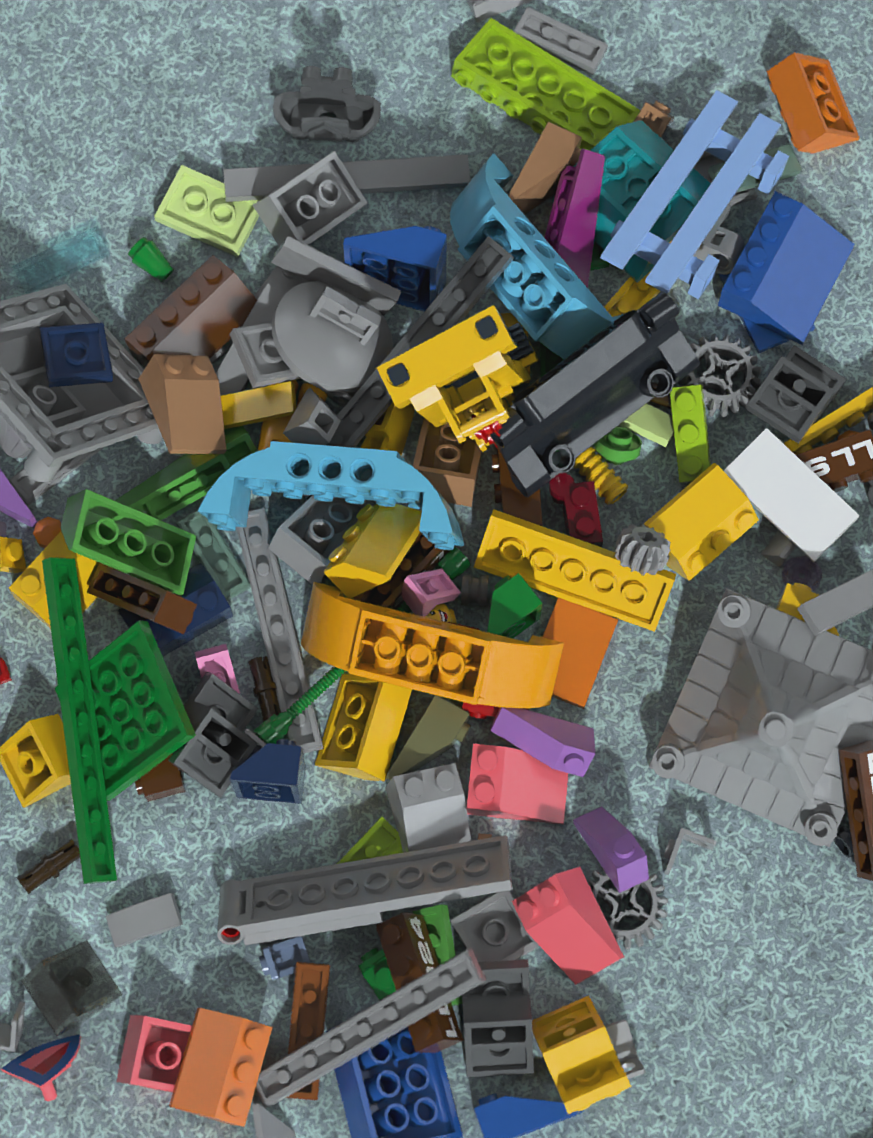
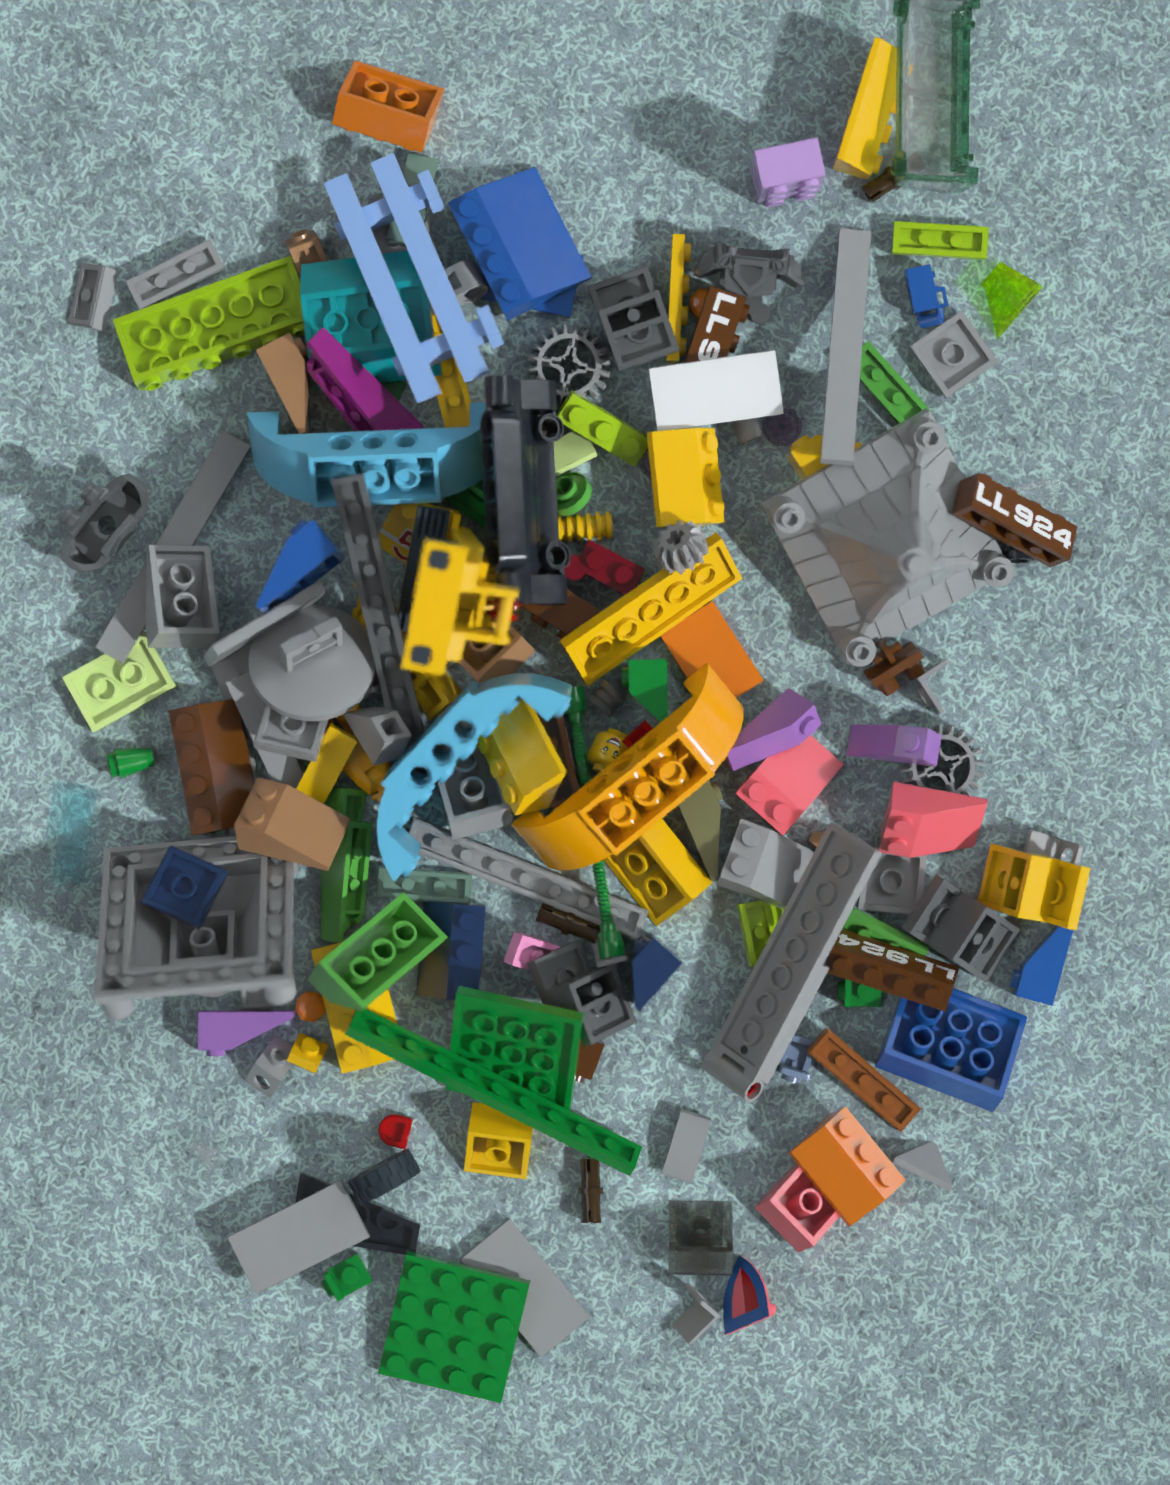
camera: 55 degrees left, 15 degrees up
(142, 598) = (438, 975): reddish brown brick -> none
(369, 1027) = (906, 1035): light grey tile -> none
(427, 590) = (588, 738): bright pink slope -> none
(662, 800) = (892, 661): none -> reddish brown hips

